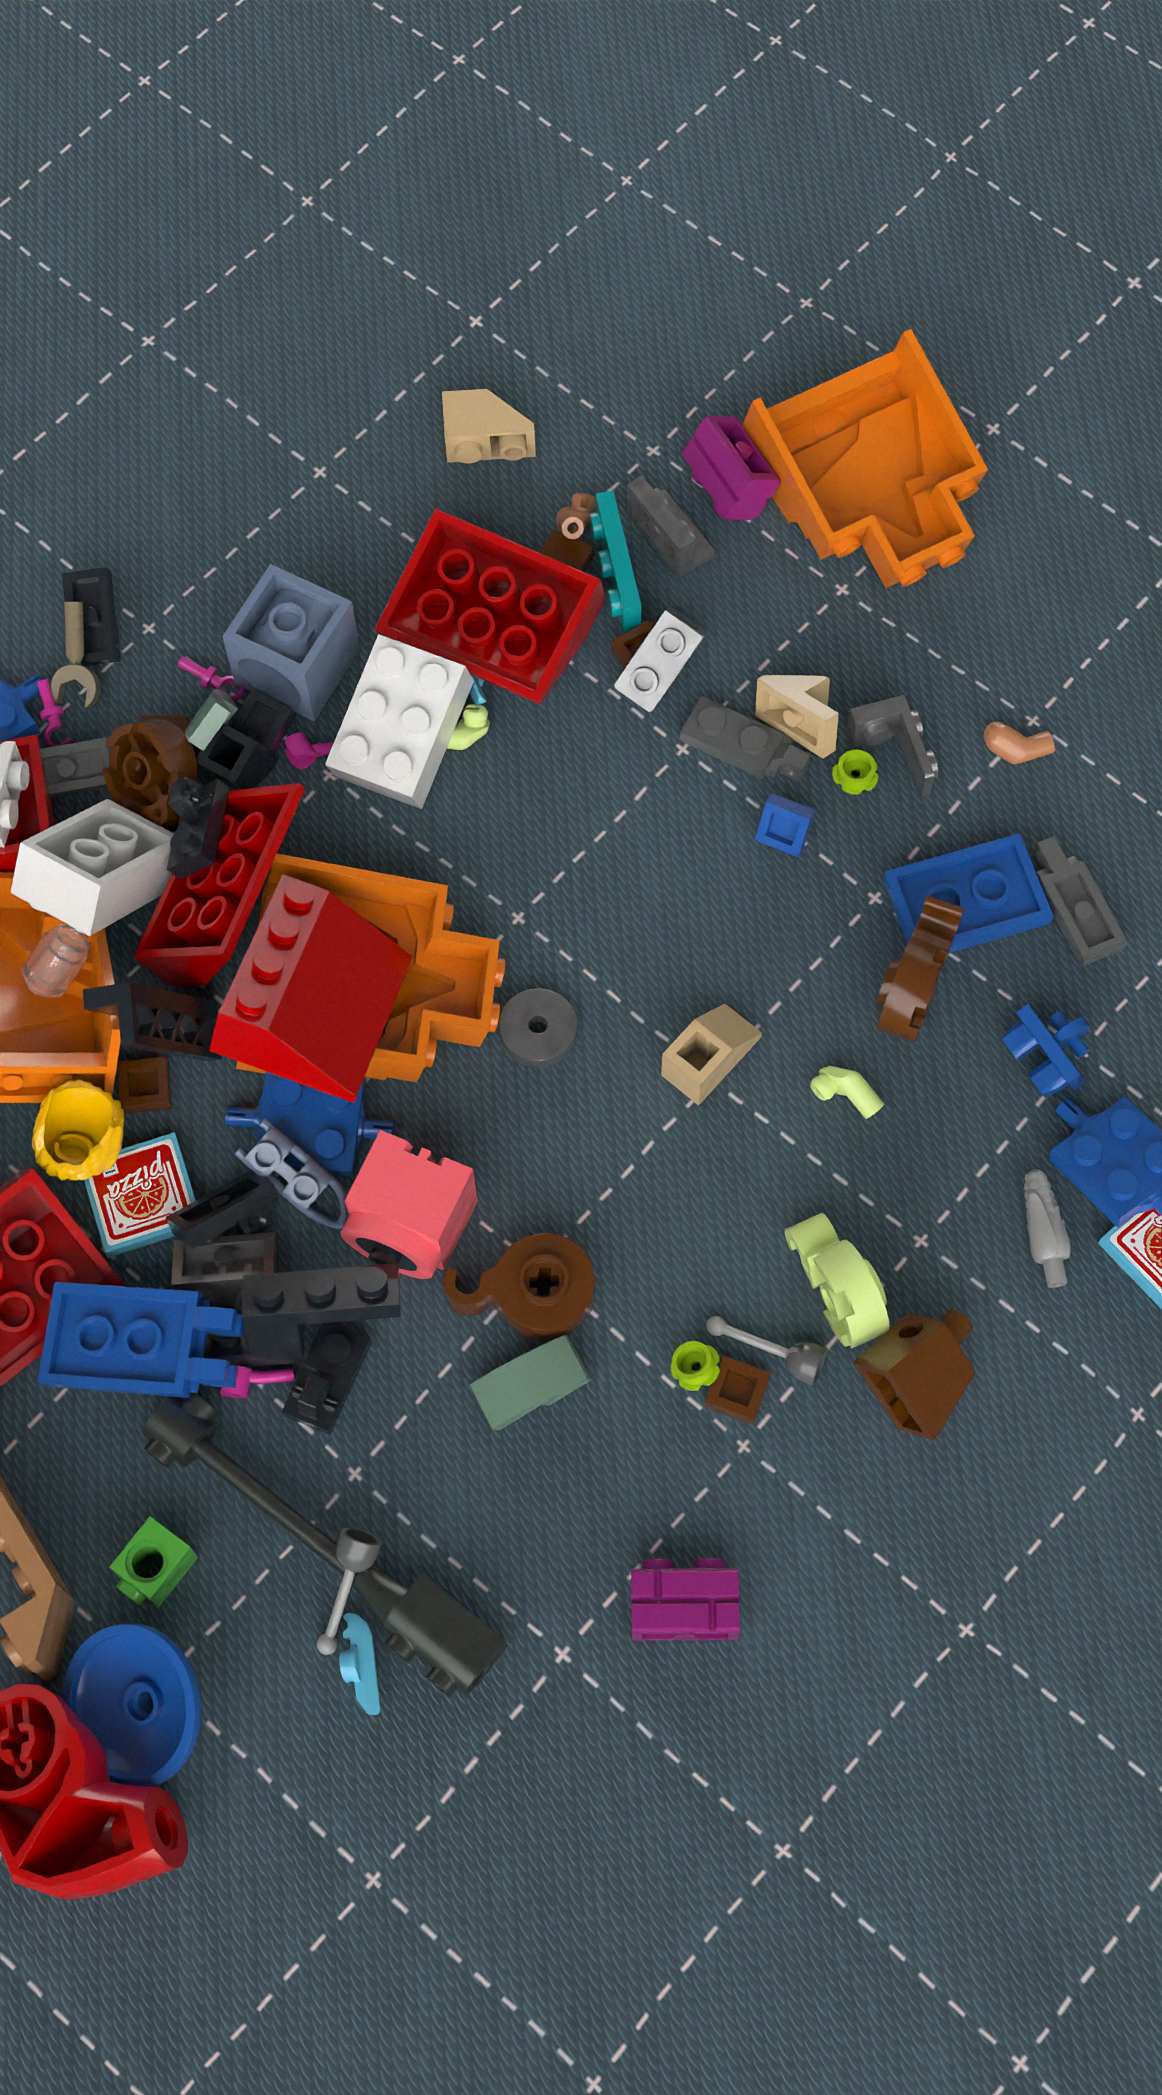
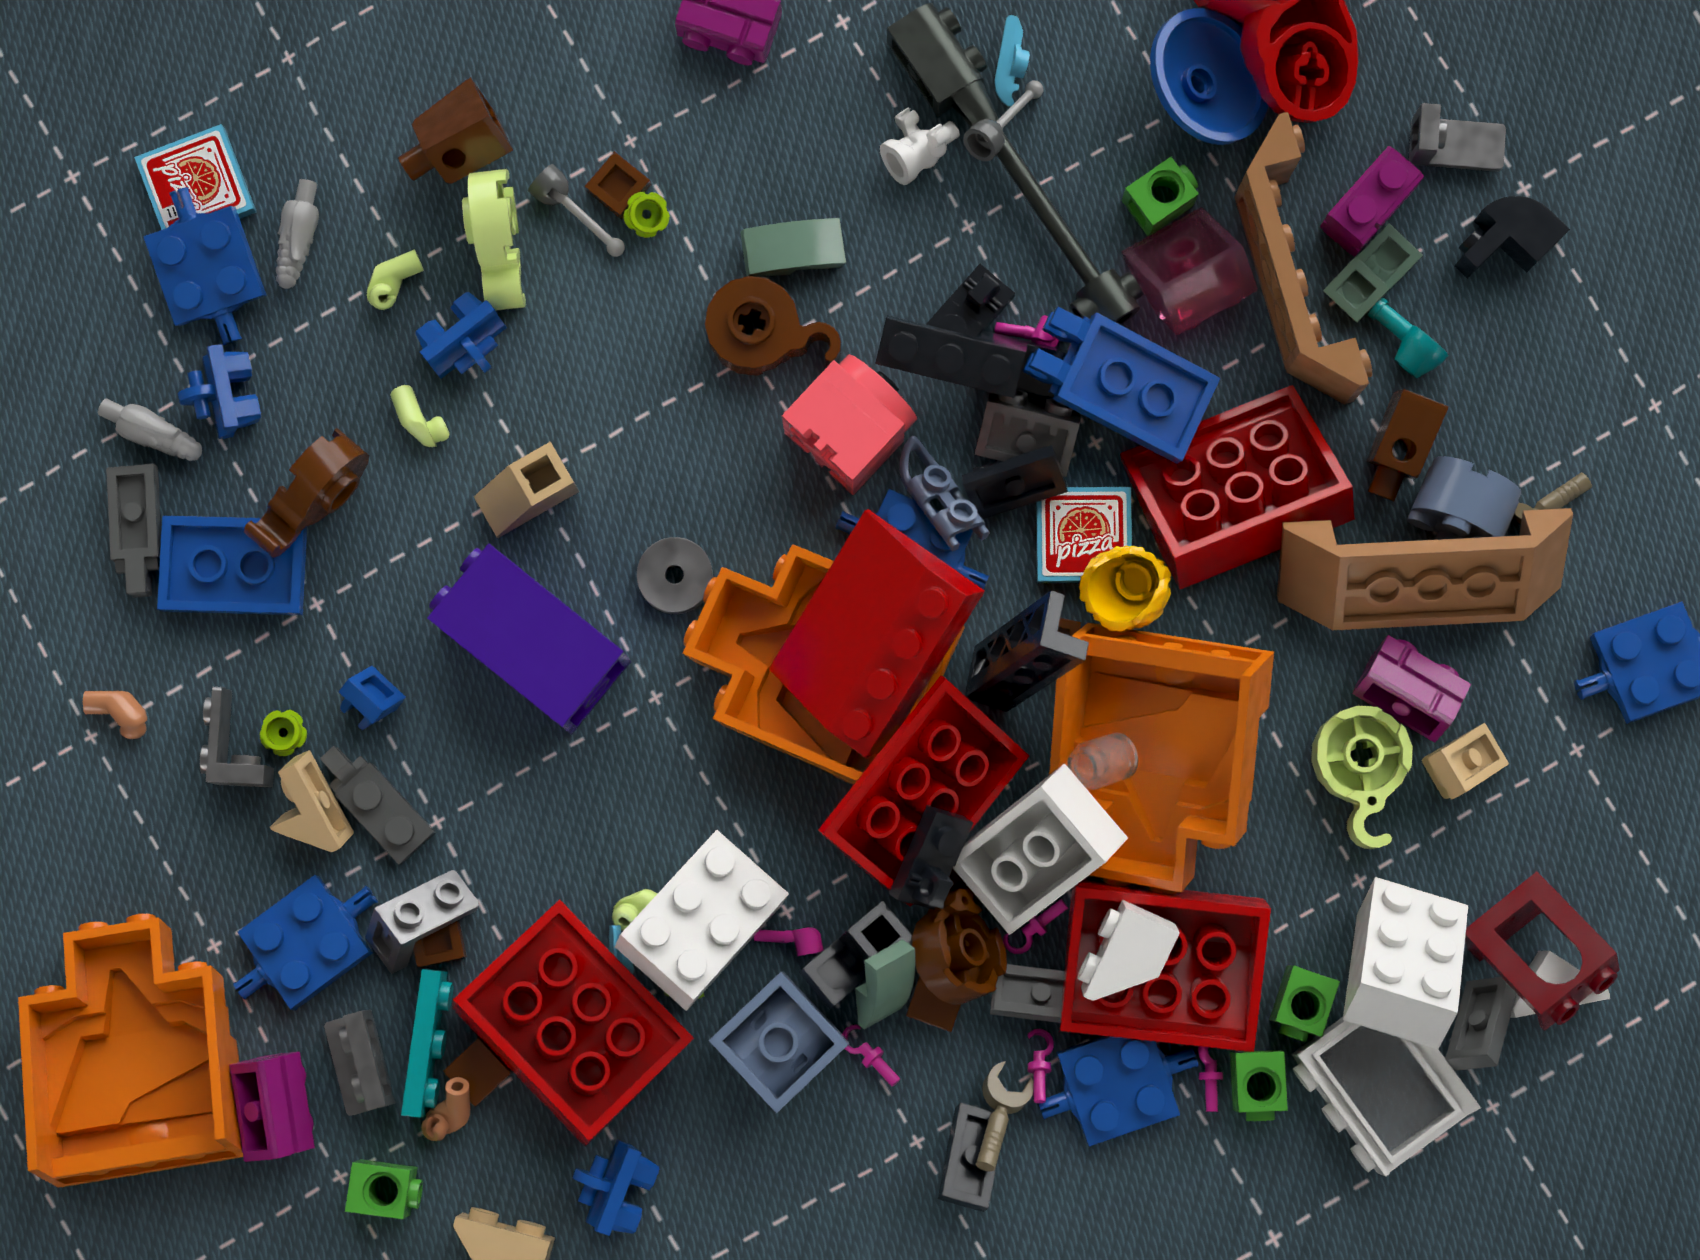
camera: 160 degrees left, 15 degrees up
(100, 1492) = (1191, 270): none -> clear pink slope
(411, 500) = (607, 1186): none -> blue hips
(429, 1532) = (917, 149): none -> white piece
(610, 426) = (362, 1194): none -> bright green brick
(652, 907) = (528, 637): none -> dark purple brick
(759, 611) = (305, 942): none -> blue plate
(848, 1160) = (465, 341): none -> blue hips
(935, 1216) = (388, 278): none -> yellowish green arm
(1103, 994) = (150, 430): none -> light grey piece

